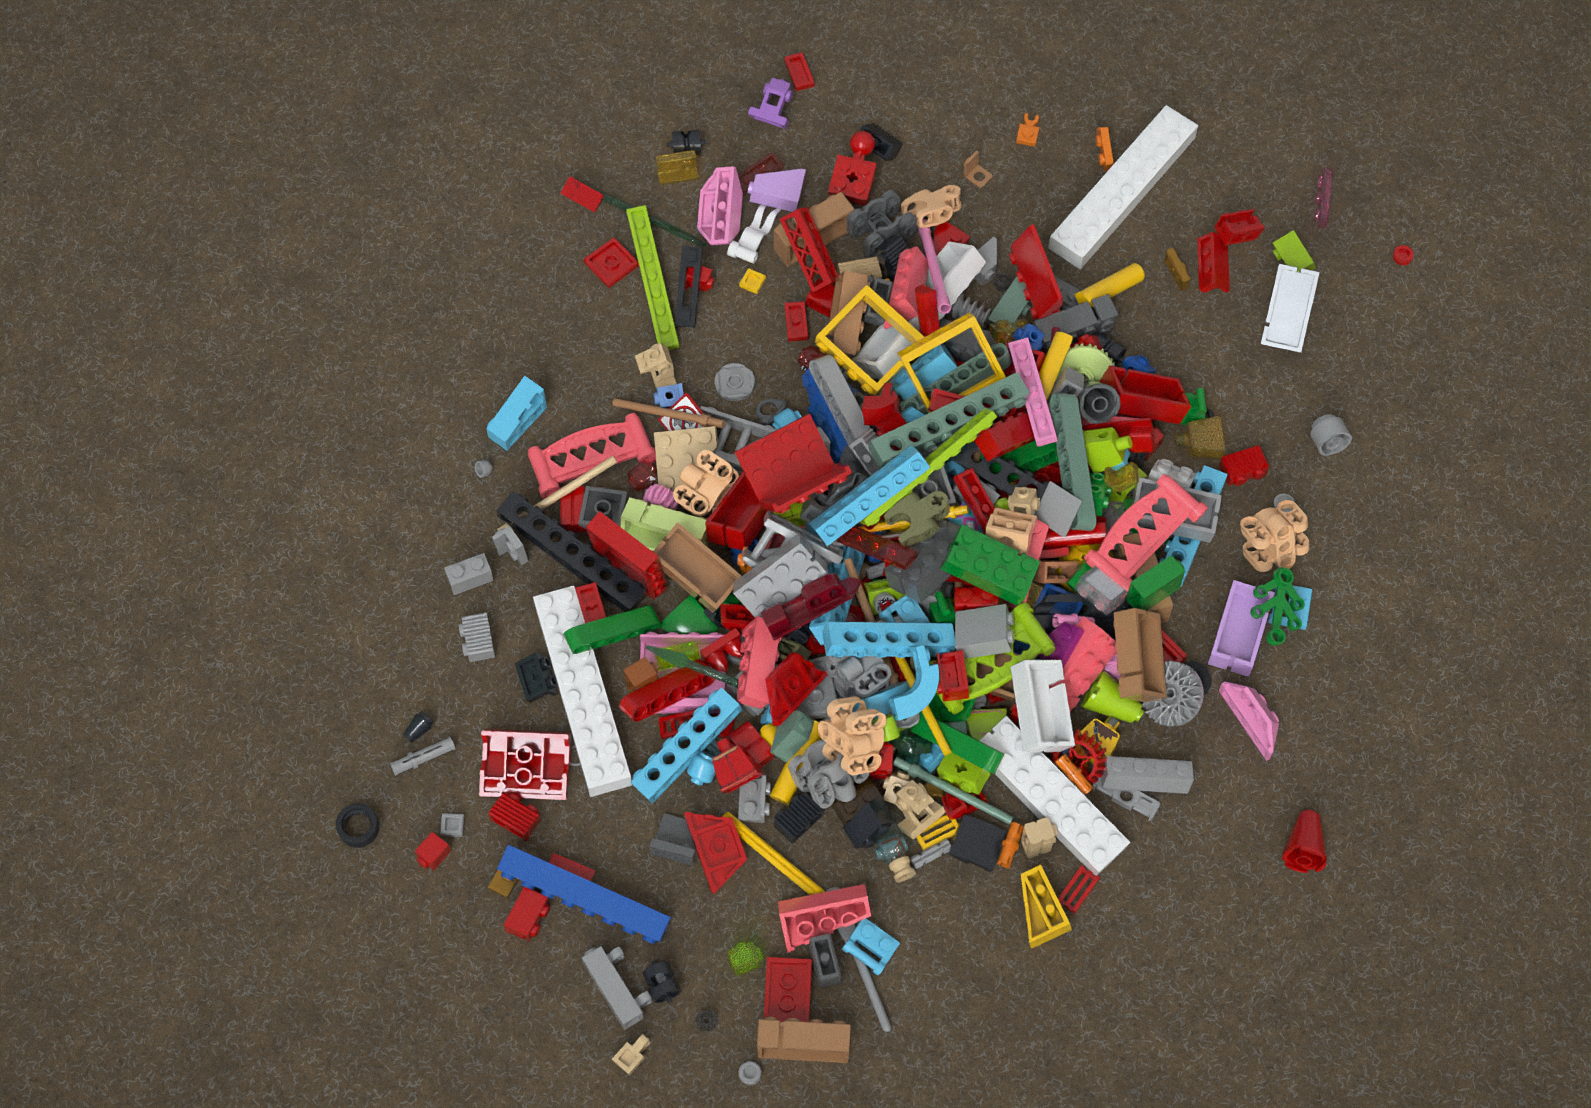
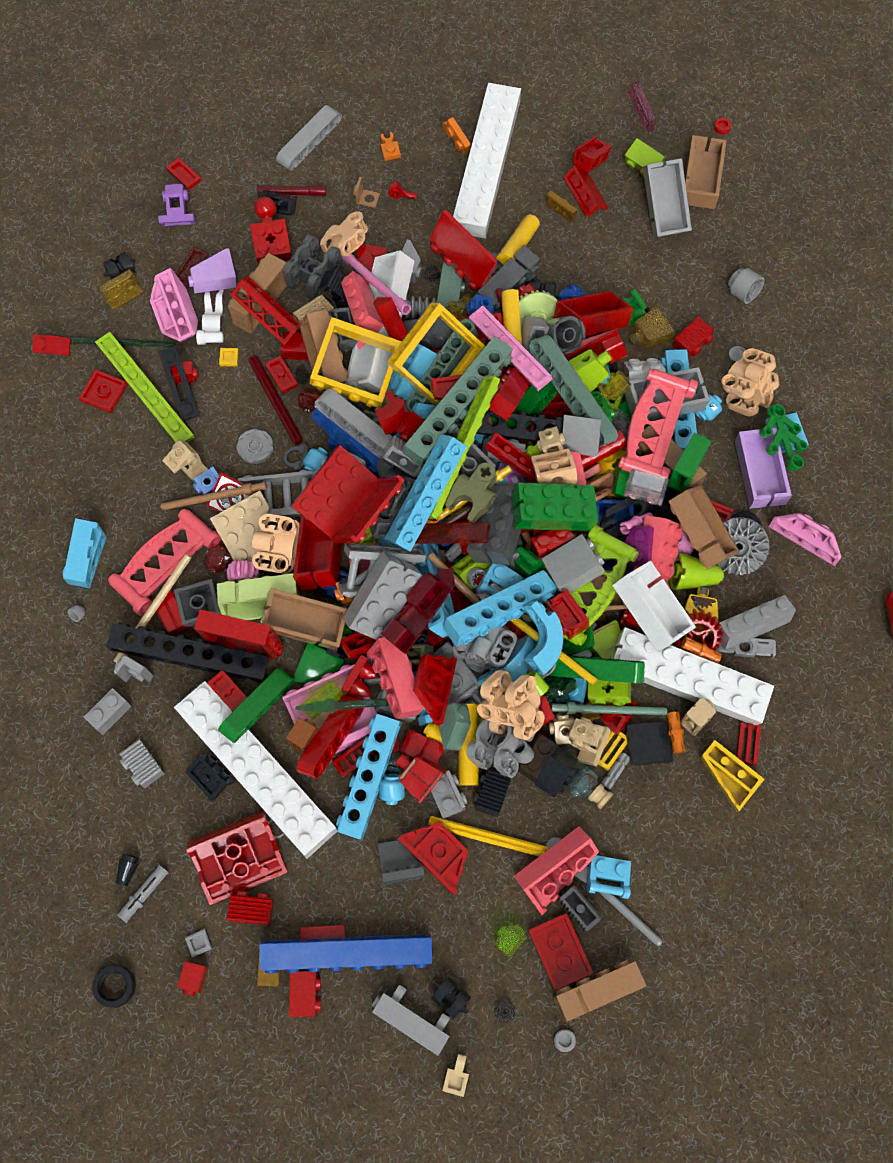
camera: 25 degrees left, 5 degrees up
(777, 344) = (275, 400): none -> dark red axle
(814, 326) = (301, 372): none -> clear smoke plate
(921, 143) = (295, 190): none -> dark red piece
(947, 85) = (310, 135): none -> light grey beam
(1010, 181) = (396, 191): none -> red piece
(1221, 544) = (712, 409): none -> medium azure head
(1350, 296) = (704, 171): none -> medium nougat piece

